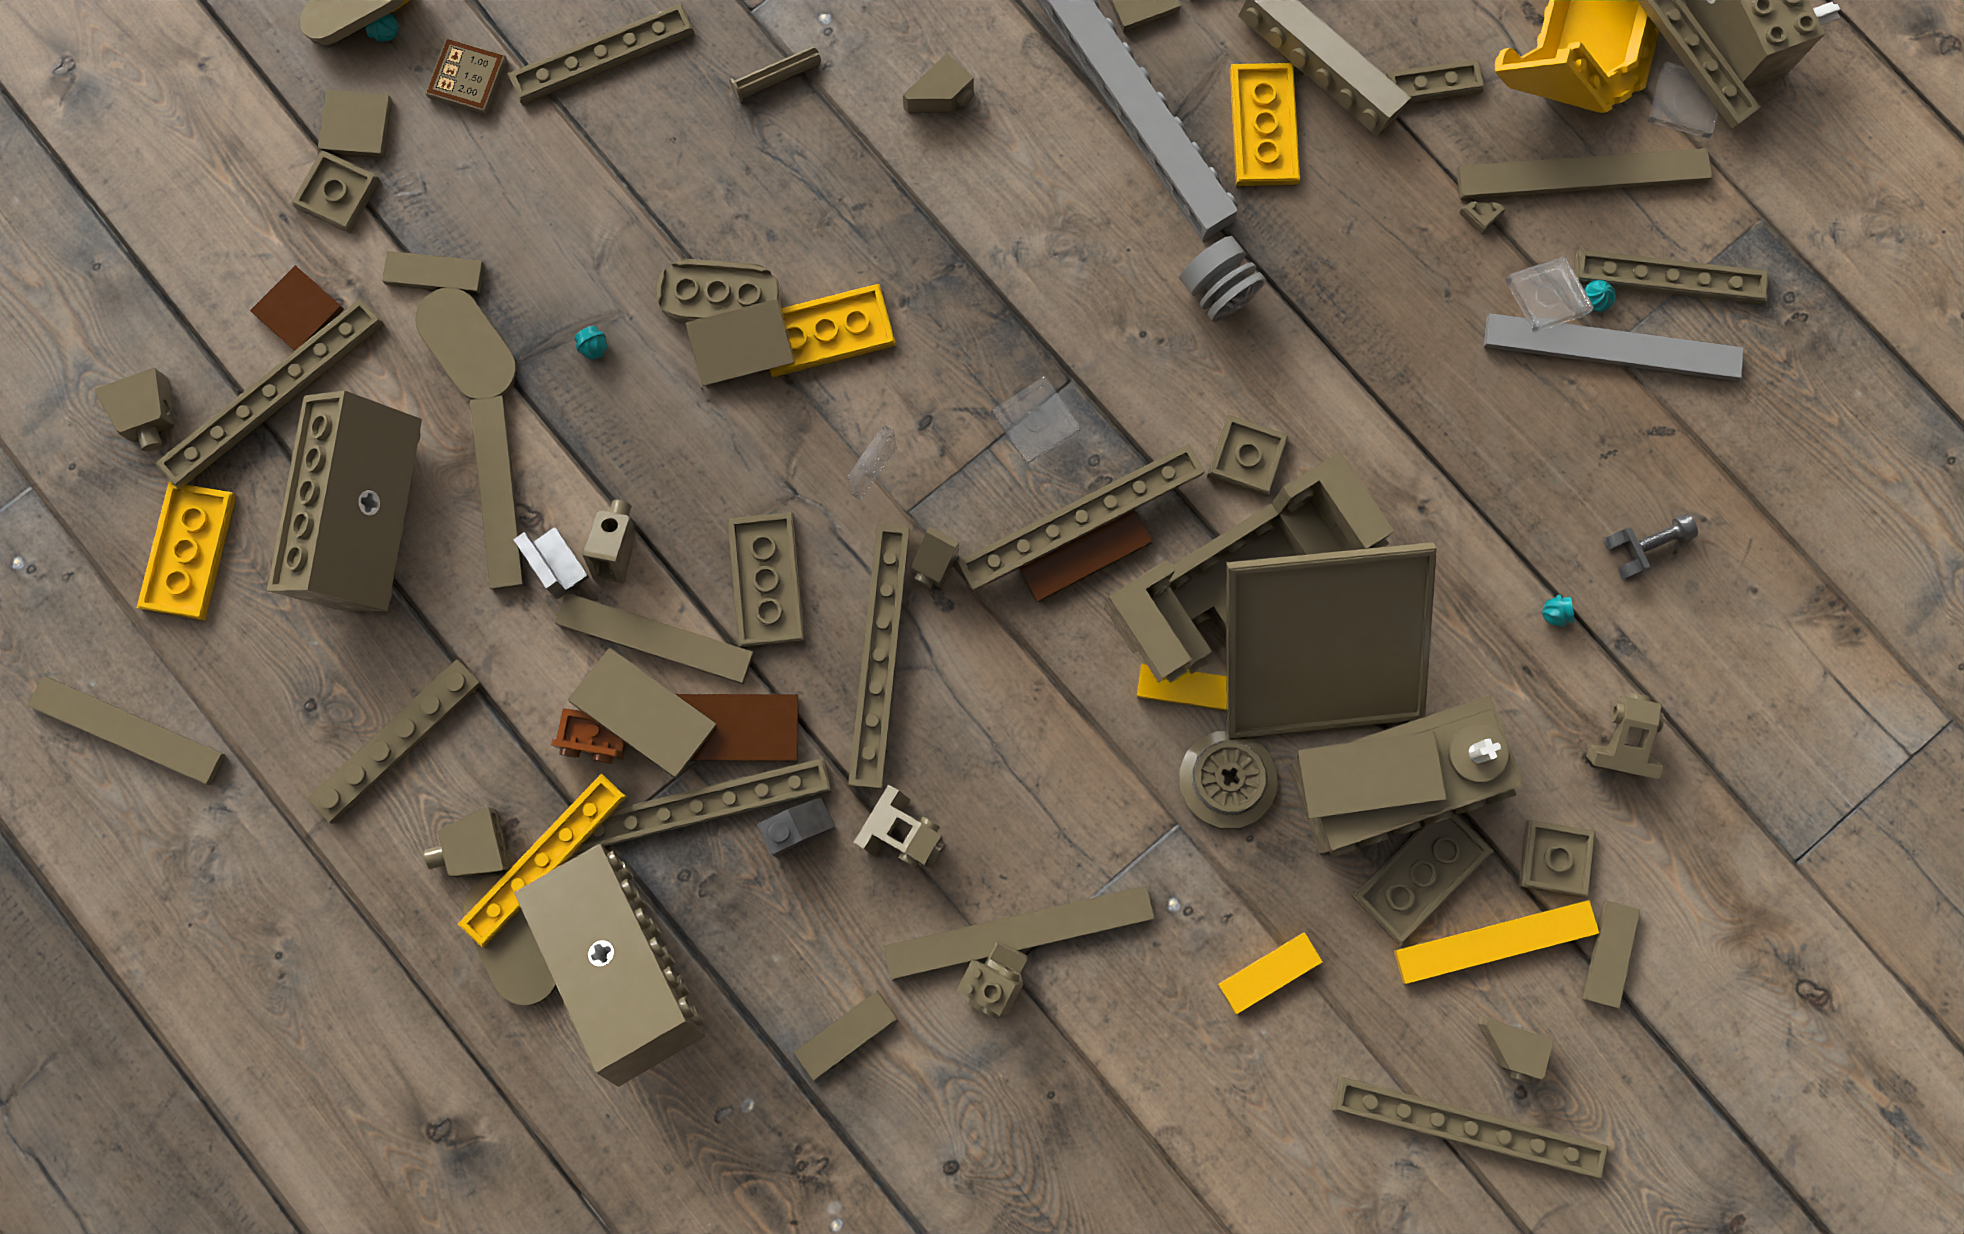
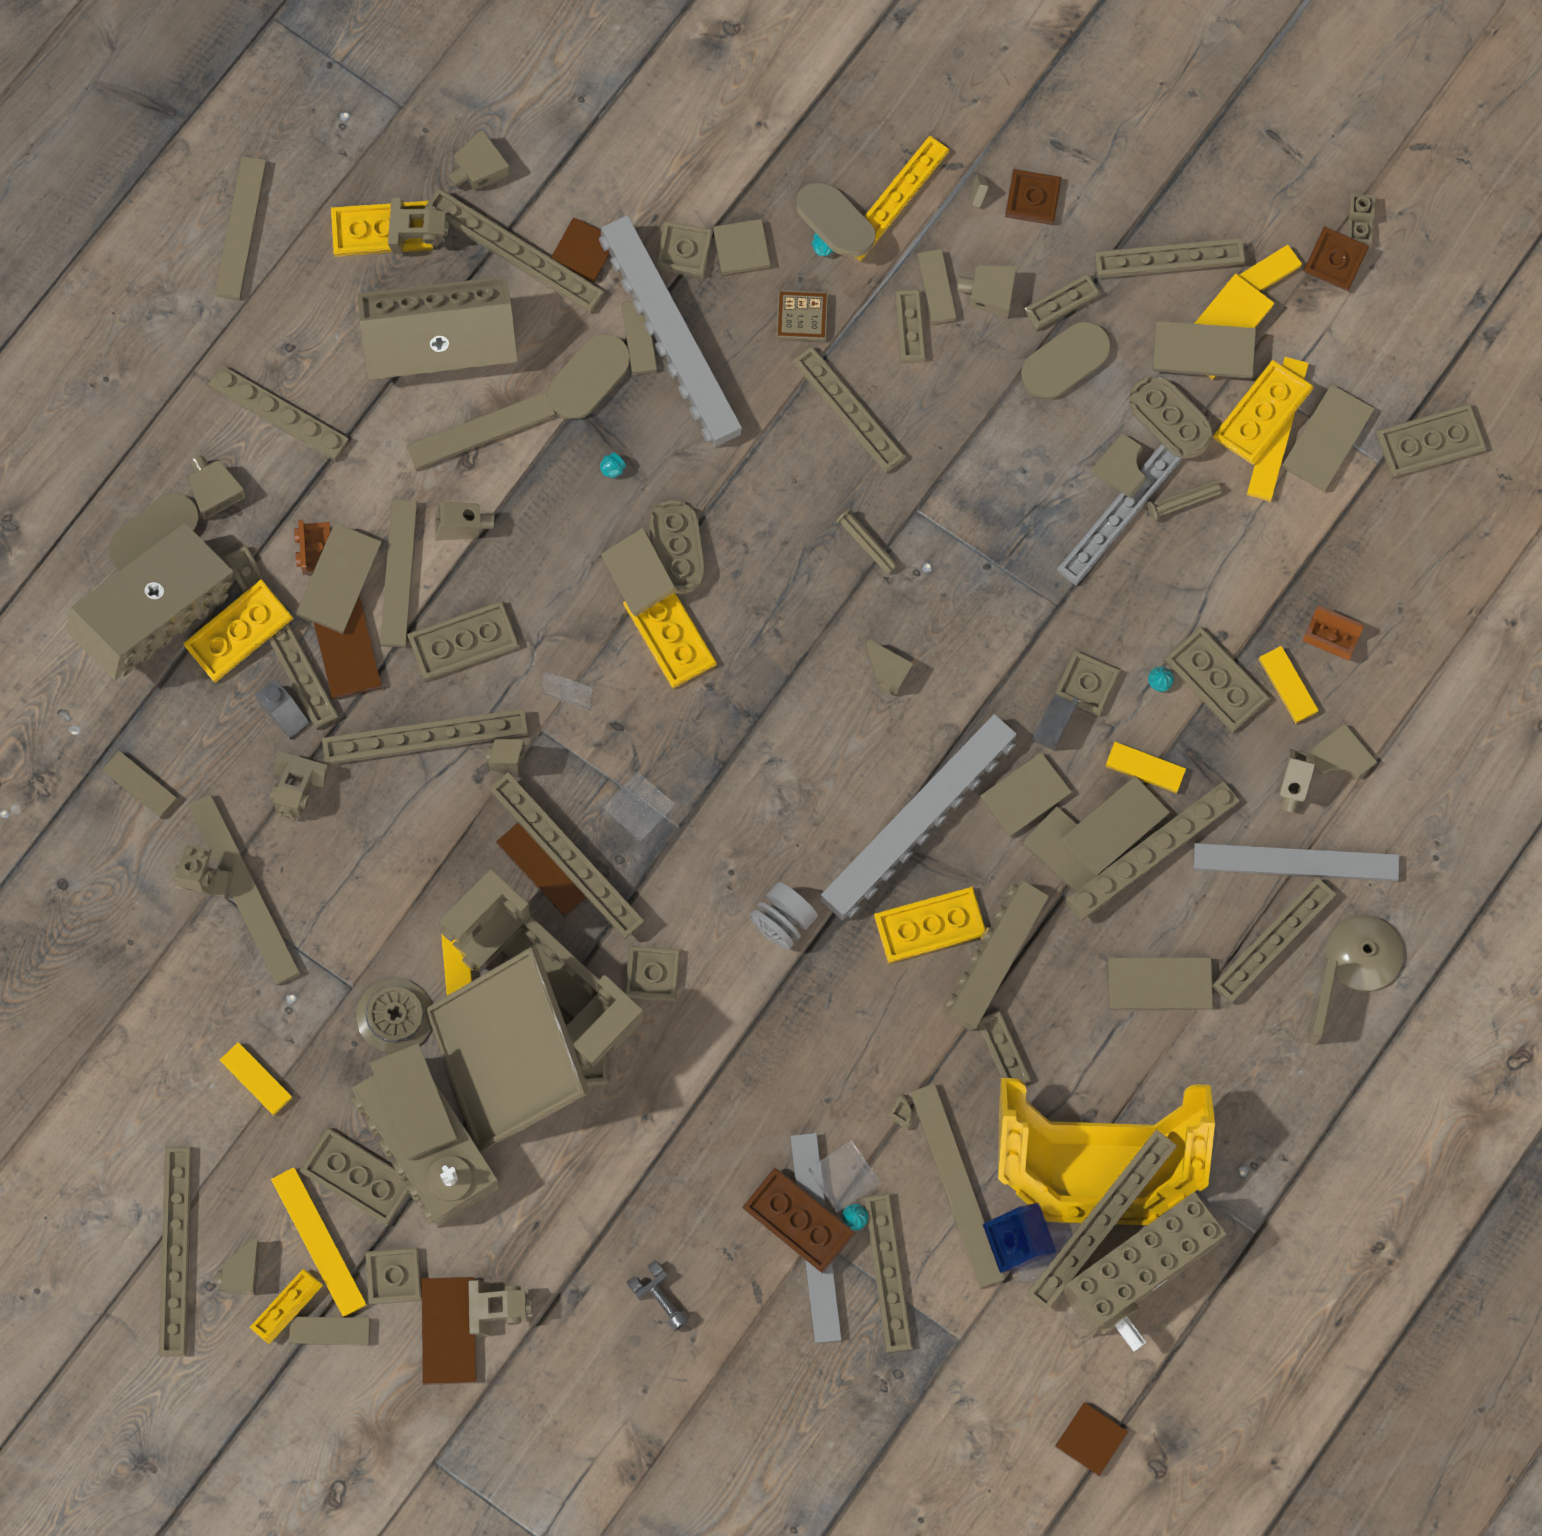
camera: 75 degrees right, 5 degrees down
(190, 520) = (399, 227): none -> dark tan tile
(436, 229) = (670, 332): none -> light grey brick
(546, 854) = (218, 539): yellow tile -> none
(552, 562) = (436, 483): panel -> none
(675, 859) = (238, 631): none -> yellow tile
(1558, 611) = (586, 1237): teal plate -> none
(1572, 1002) = (286, 1306): none -> yellow tile
(1593, 358) = (798, 1220): none -> reddish brown tile
(1640, 807) = (446, 1335): none -> reddish brown tile
(1671, 114) = (1019, 1237): none -> clear blue slope
(1908, 104) = (1091, 1439): none -> reddish brown tile

